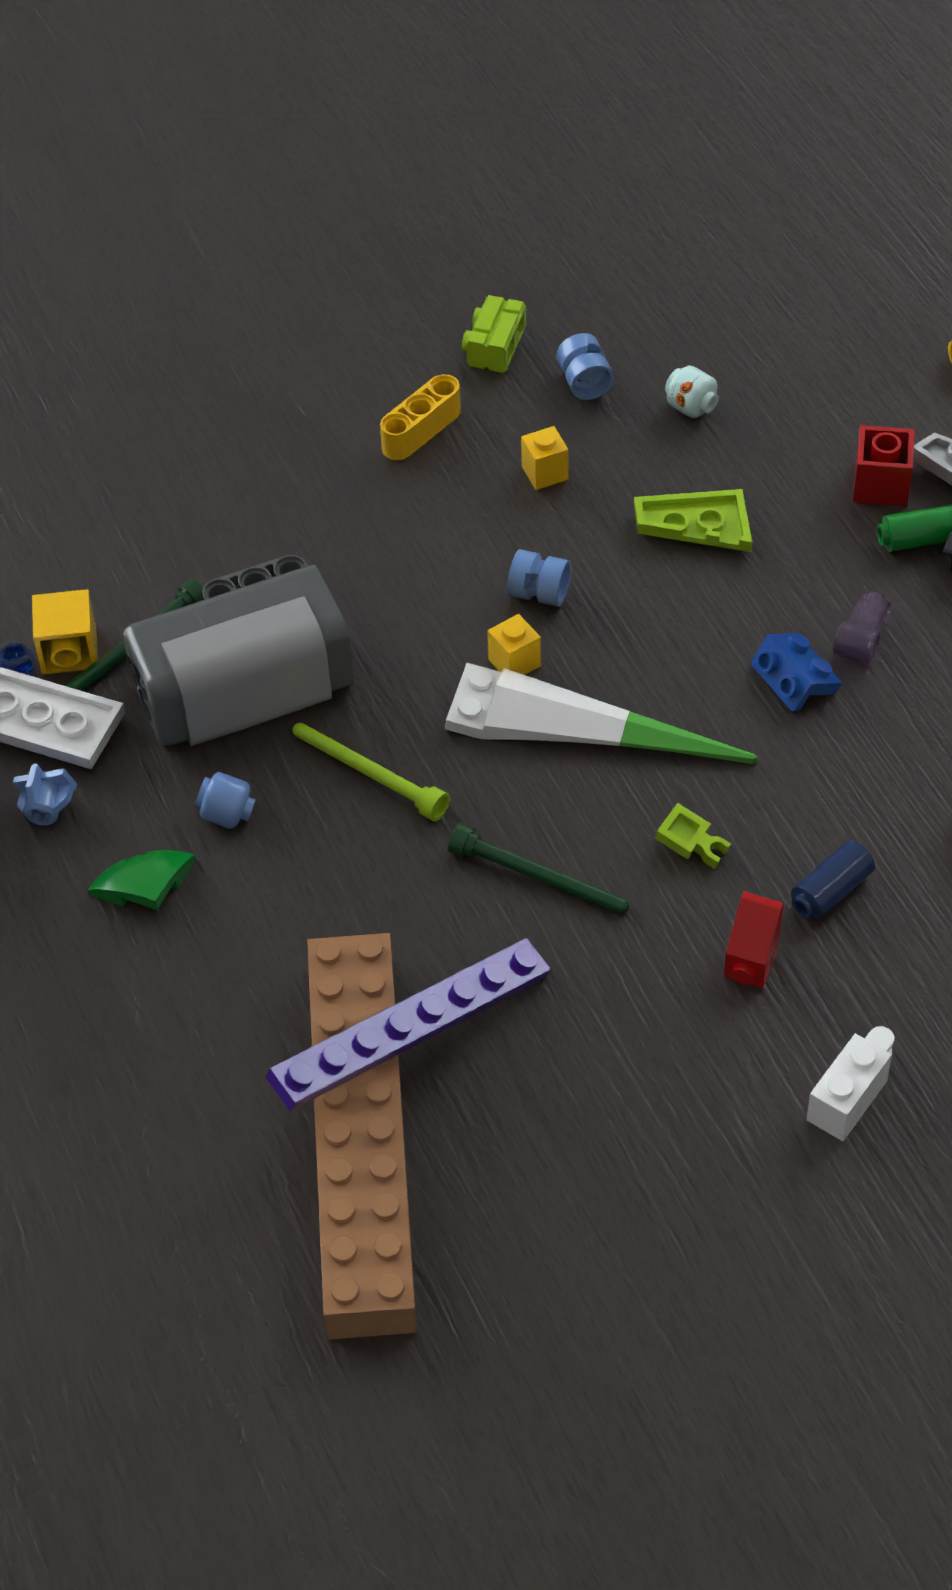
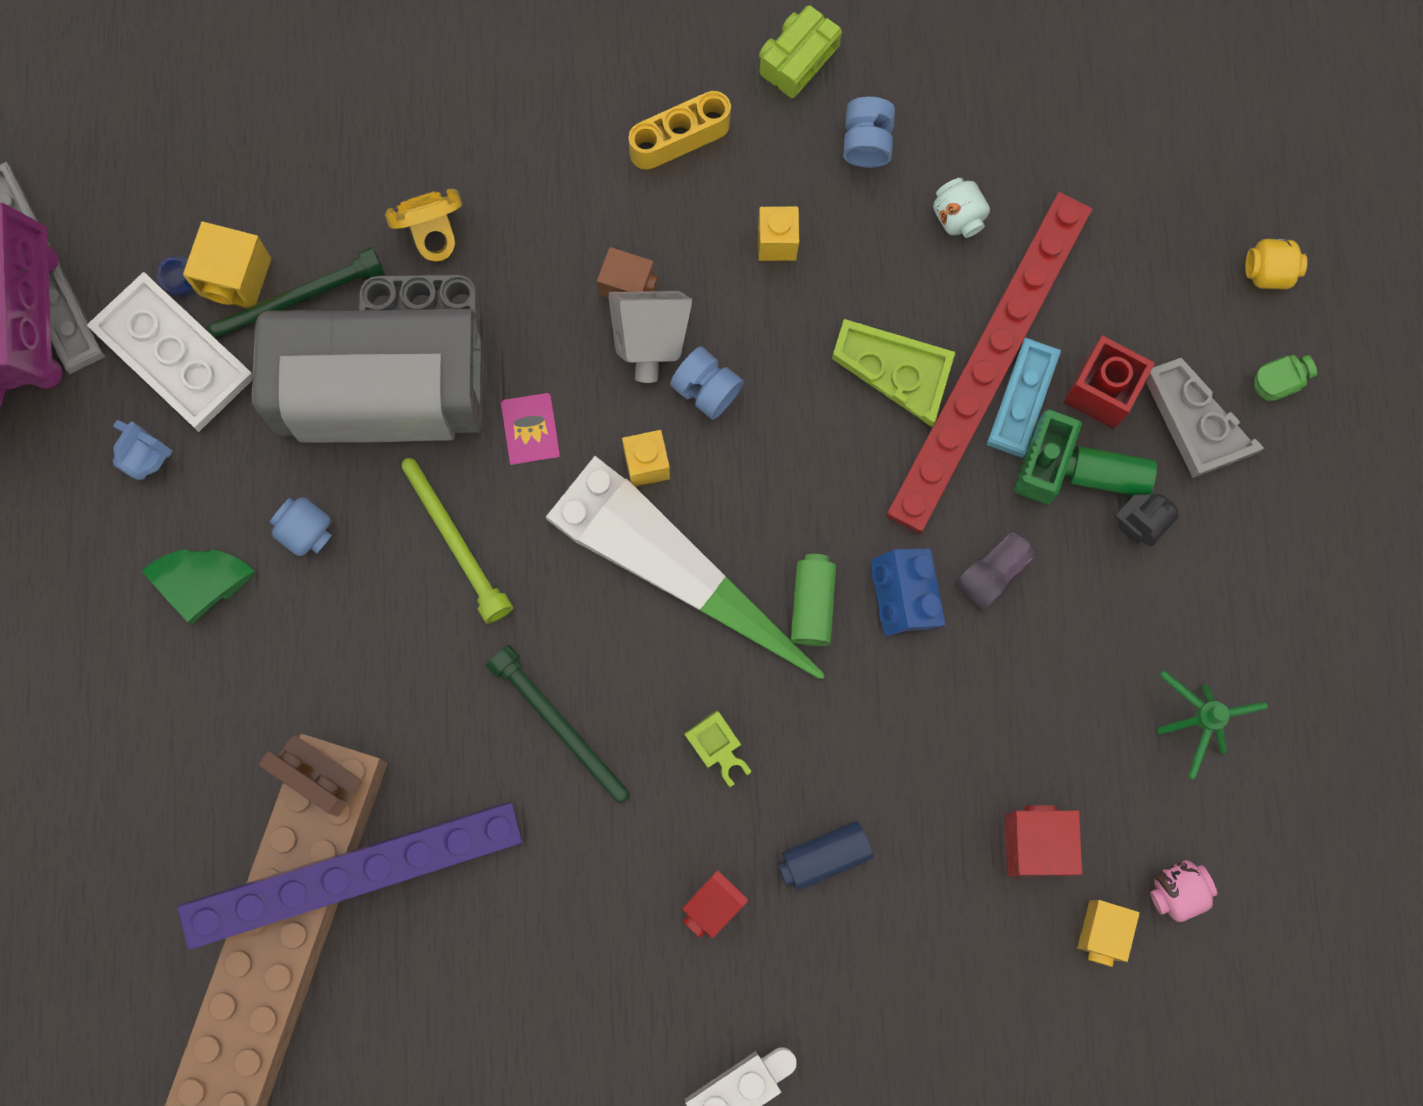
camera: 15 degrees right, 25 degrees up
(229, 539) = (425, 215): none -> yellow tile
(337, 951) = (312, 775): none -> reddish brown bracket
(395, 670) = (530, 428): none -> dark pink sticker
(429, 531) = (626, 273): none -> dark orange brick
(468, 551) = (649, 328): none -> light grey torso
(718, 702) = (813, 601): none -> bright green brick
(774, 497) = (988, 364): none -> red plate
(818, 507) = (1023, 397): none -> medium azure tile
(861, 531) = (1047, 457): none -> green brick

